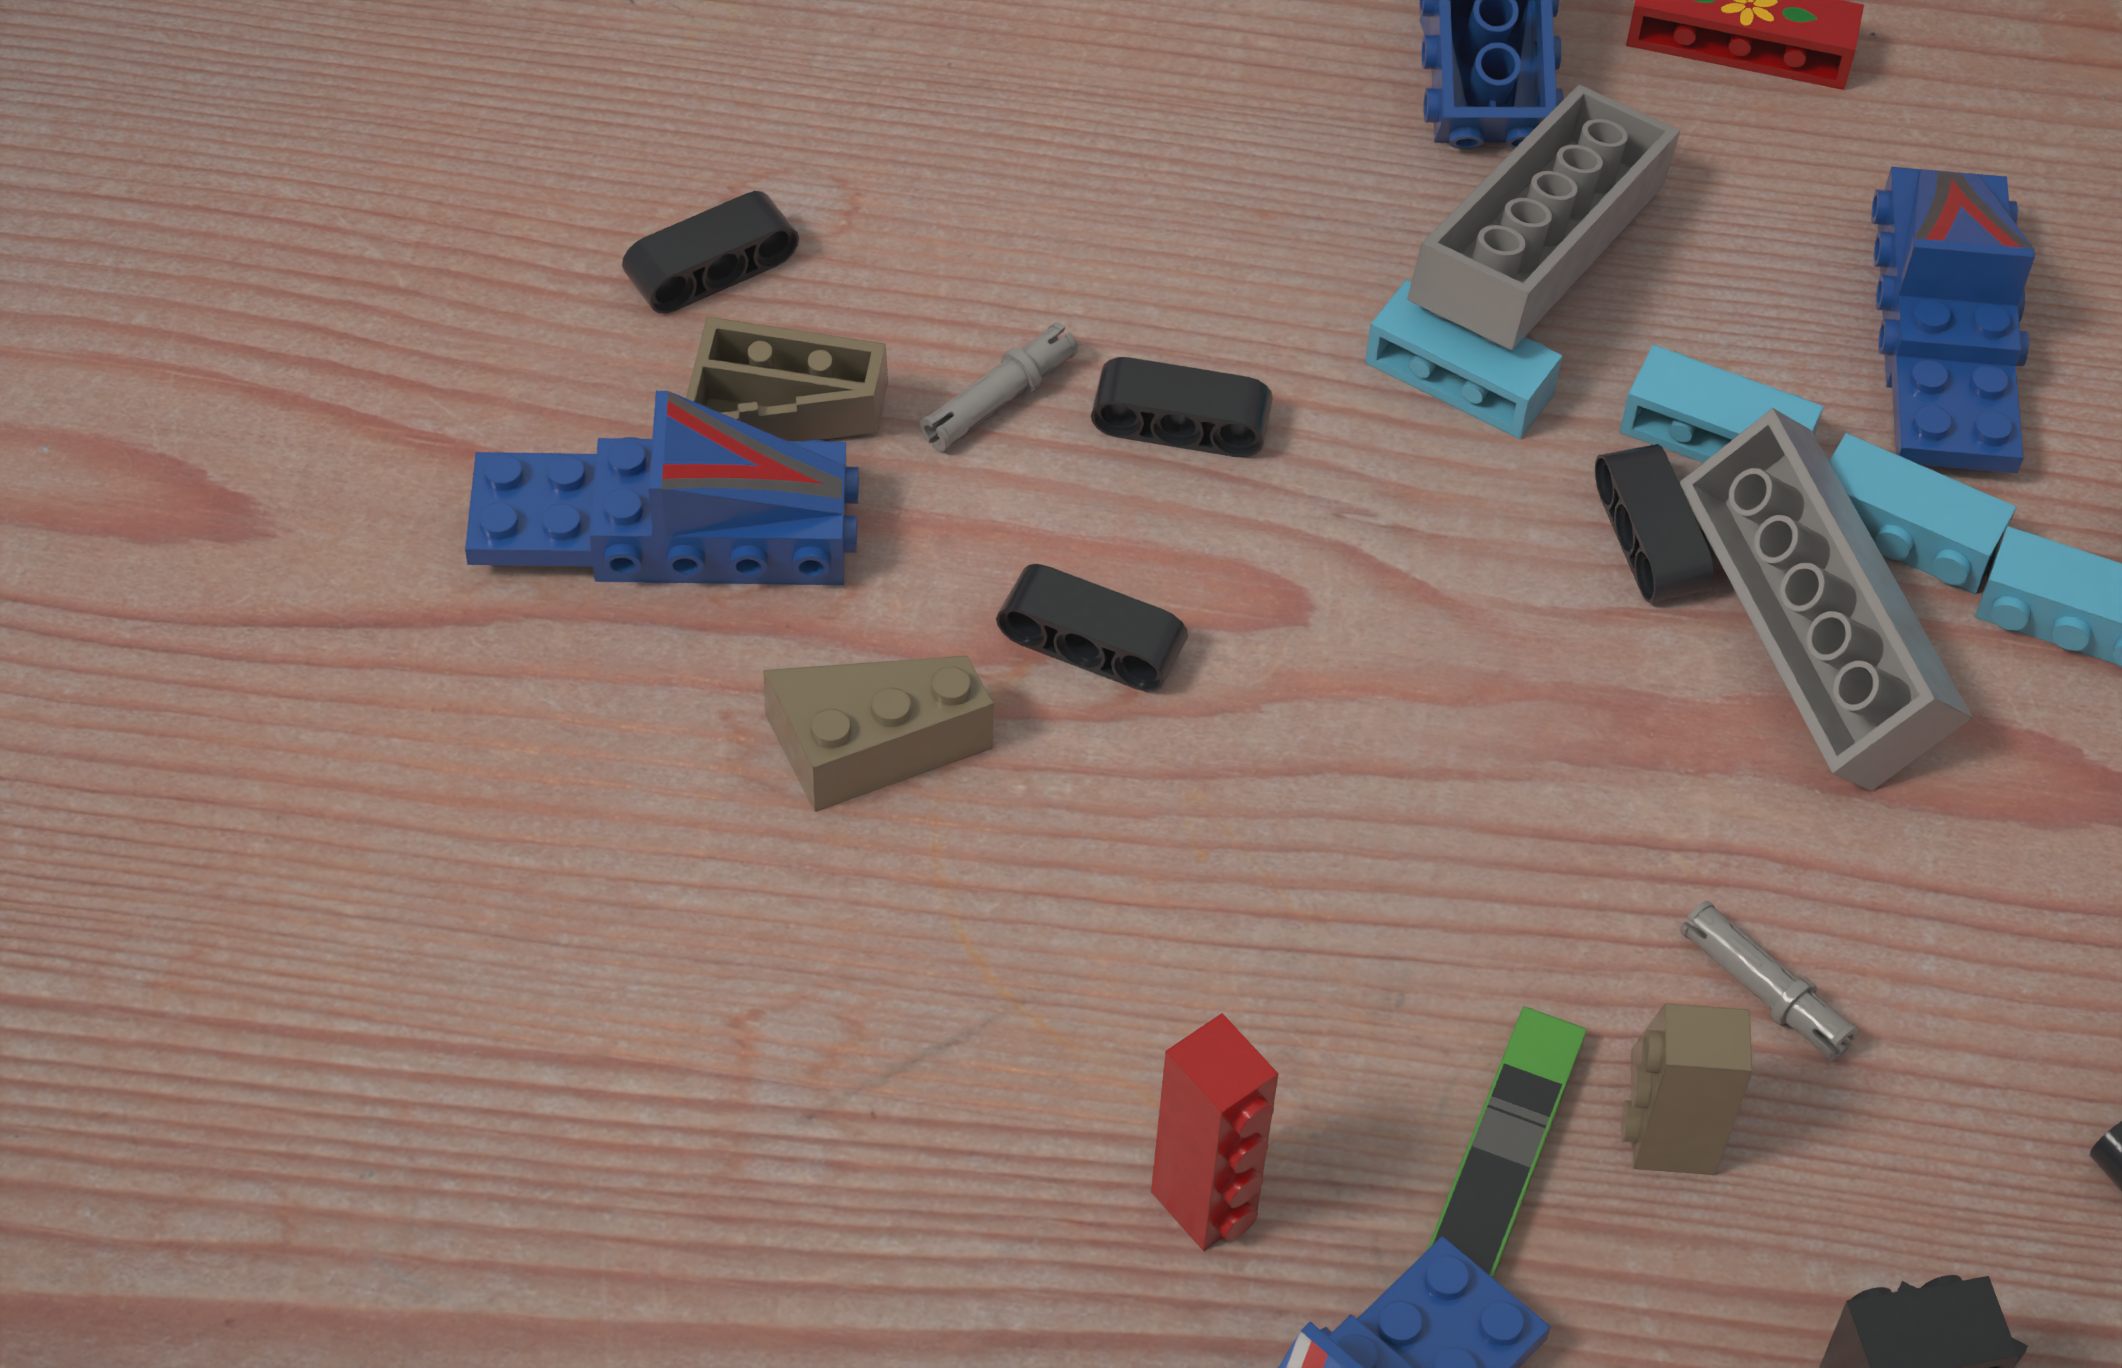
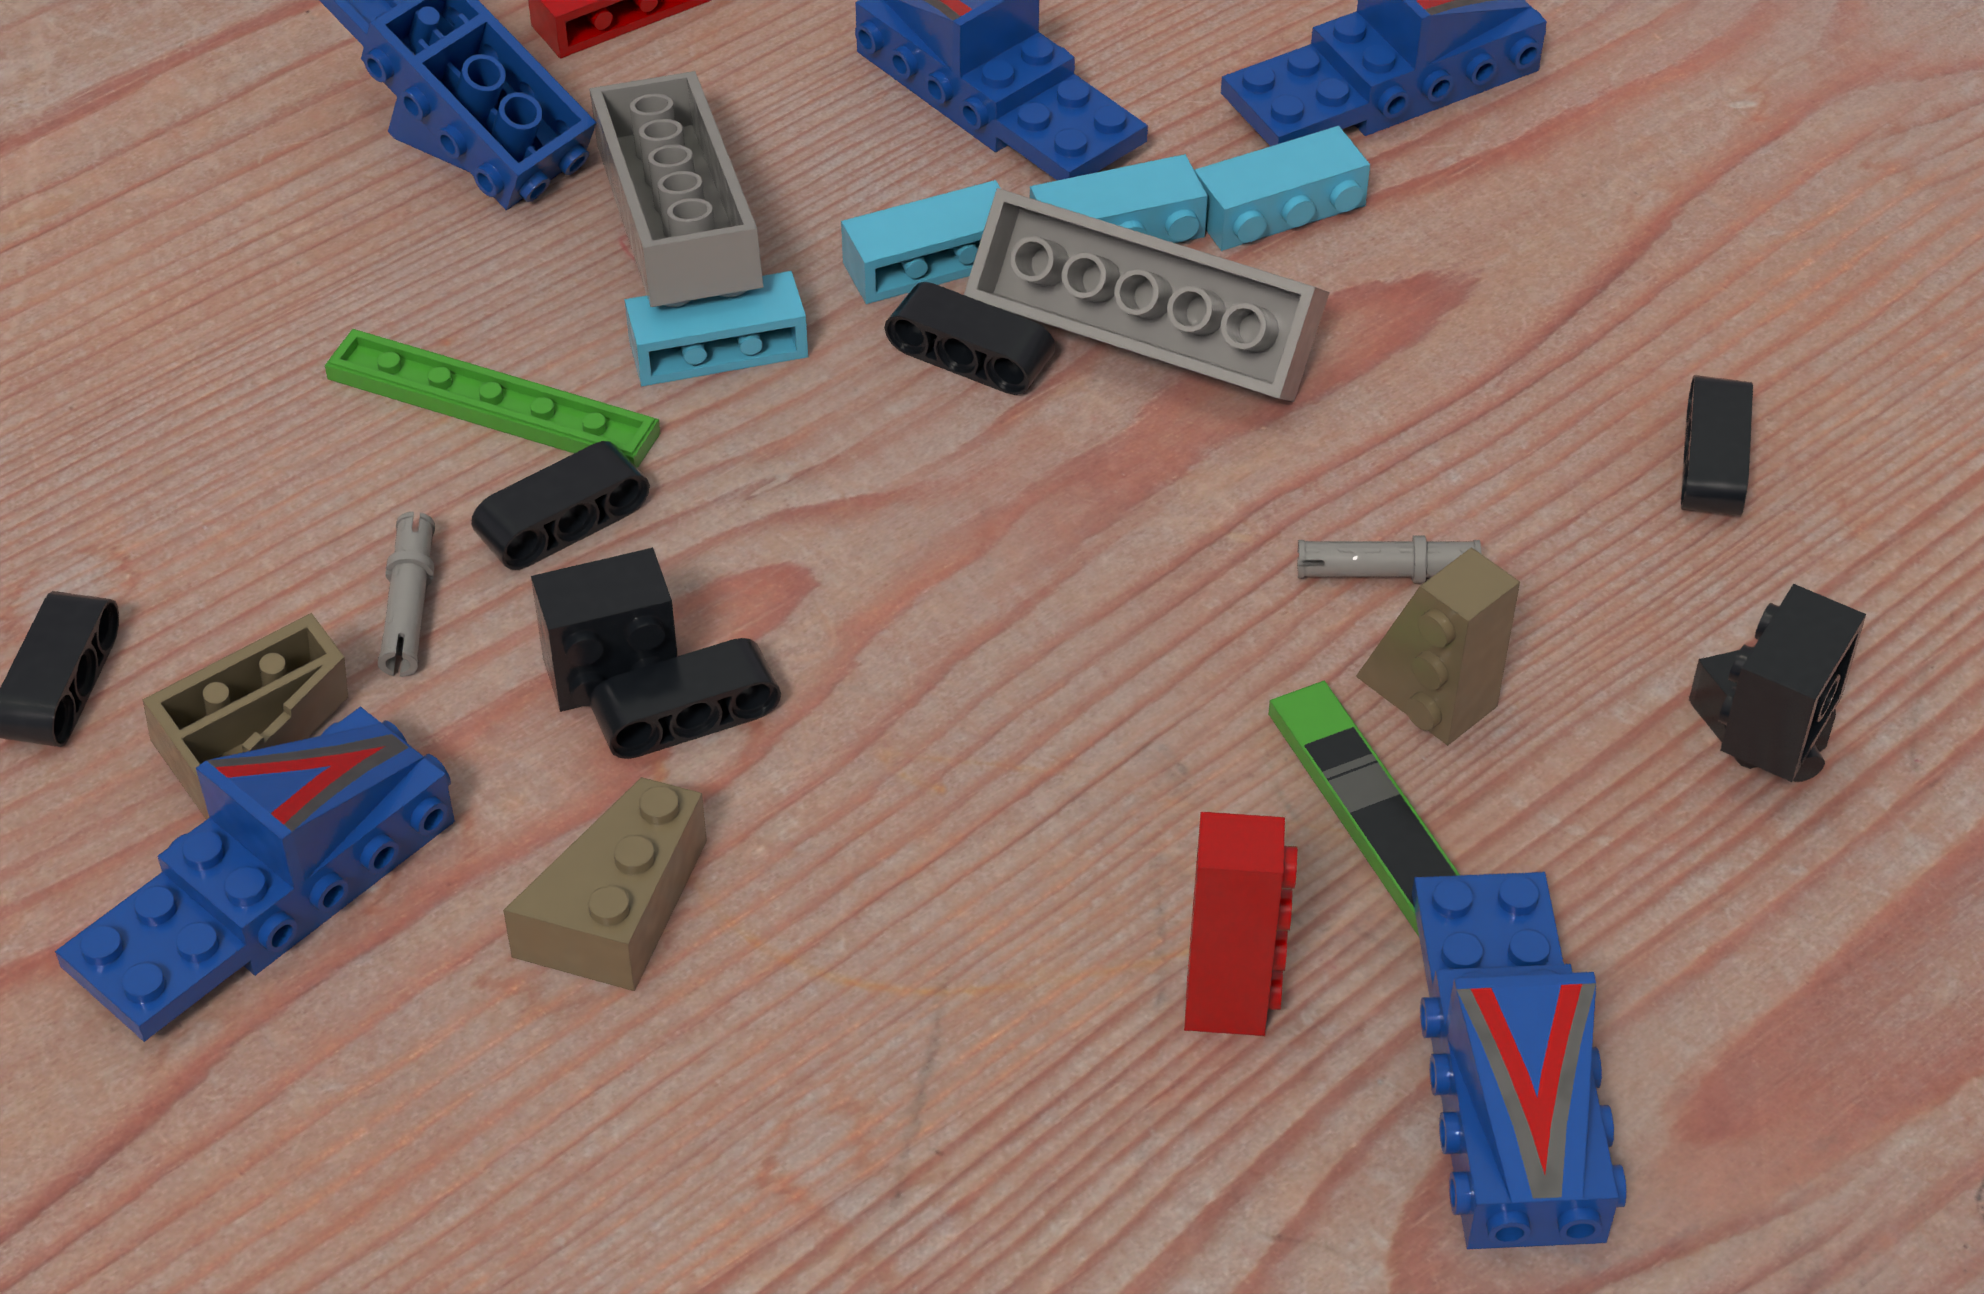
camera: 45 degrees left, 5 degrees down
(1082, 518) = (602, 622): none -> black brick
(1241, 288) = (488, 397): none -> bright green tile

